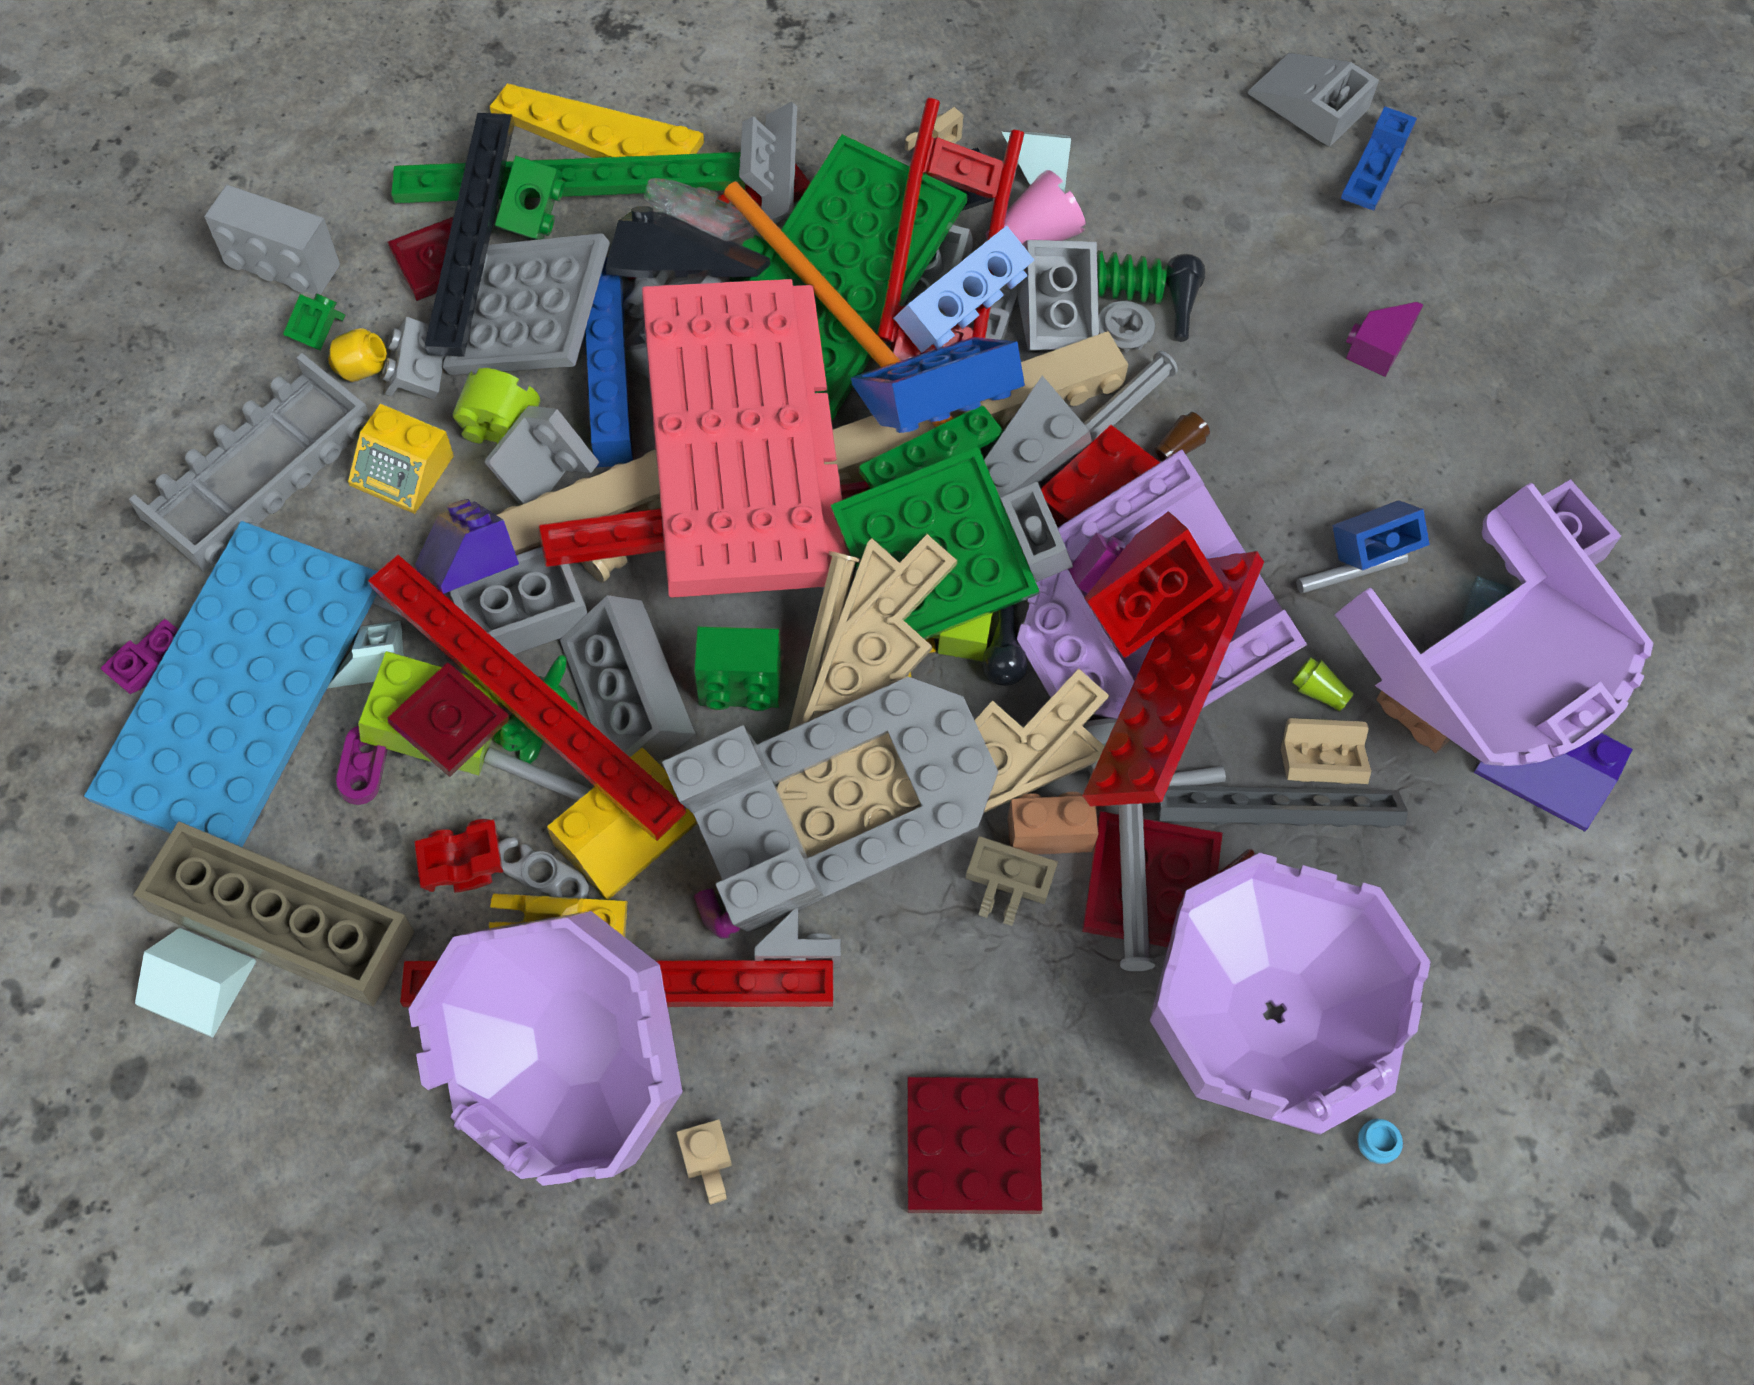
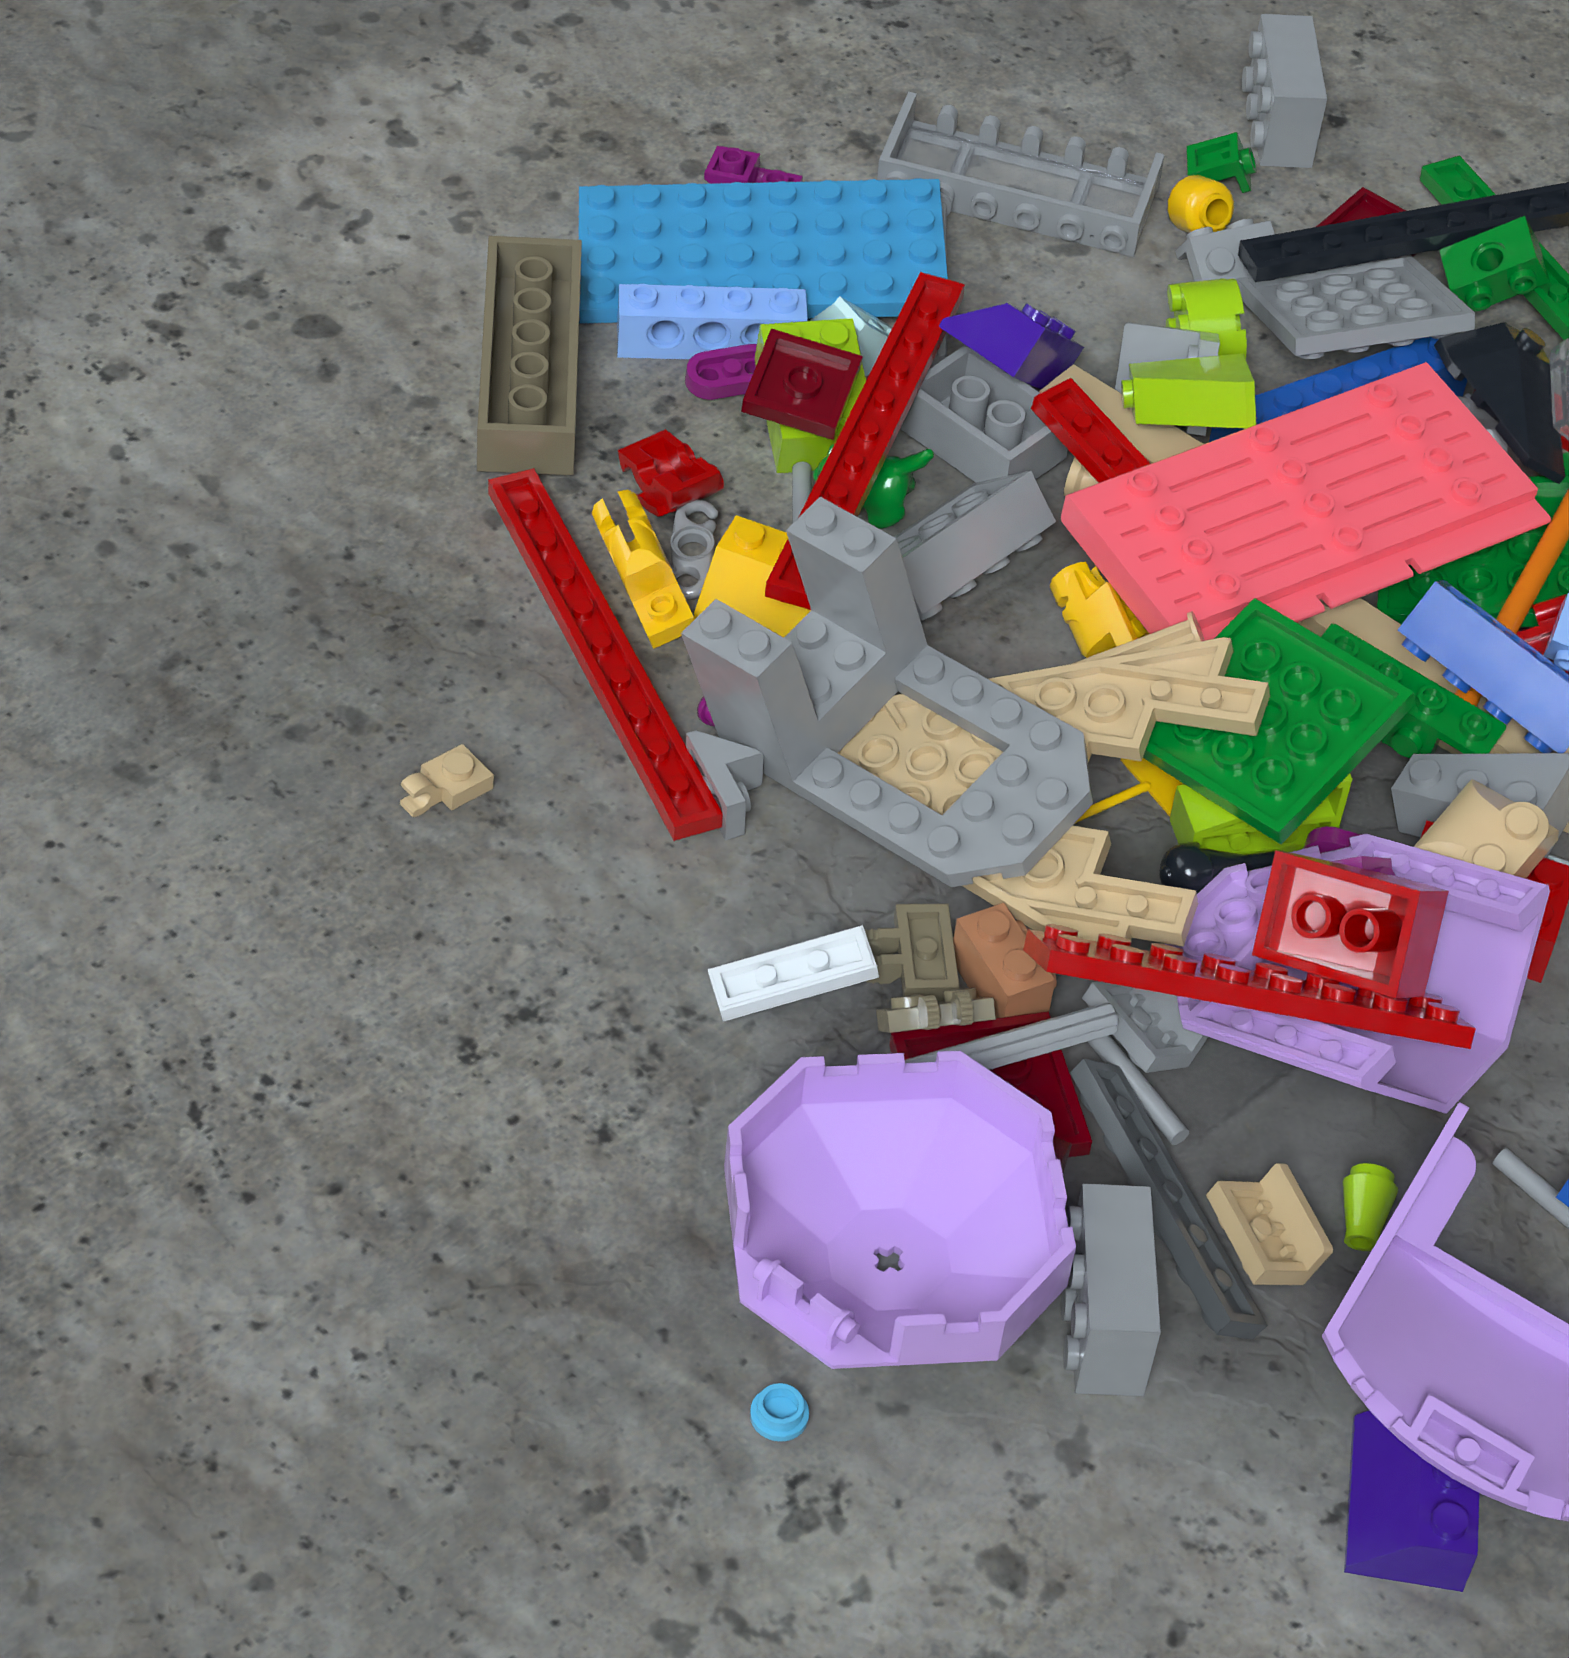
camera: 65 degrees right, 15 degrees down
(191, 980) = (435, 328): light aqua slope -> none
(304, 758) = (697, 319): none -> light blue brick
(399, 458) = (1100, 280): yellow slope -> none
(550, 1045) = (505, 569): lavender windscreen -> none
(591, 448) = (1192, 392): none -> lime slope
(738, 667) = (1019, 613): green brick -> none
(759, 608) = (1094, 610): none -> yellow plate
(973, 1145) = (576, 1012): dark red plate -> none
(1001, 972) = (793, 973): none -> white tile
(1036, 531) = (1351, 801): light grey brick -> none
(1077, 888) = (926, 1013): none -> dark tan hinge
(1091, 465) = (1491, 831): none -> tan slope
(1363, 858) = (1112, 1291): none -> light grey brick

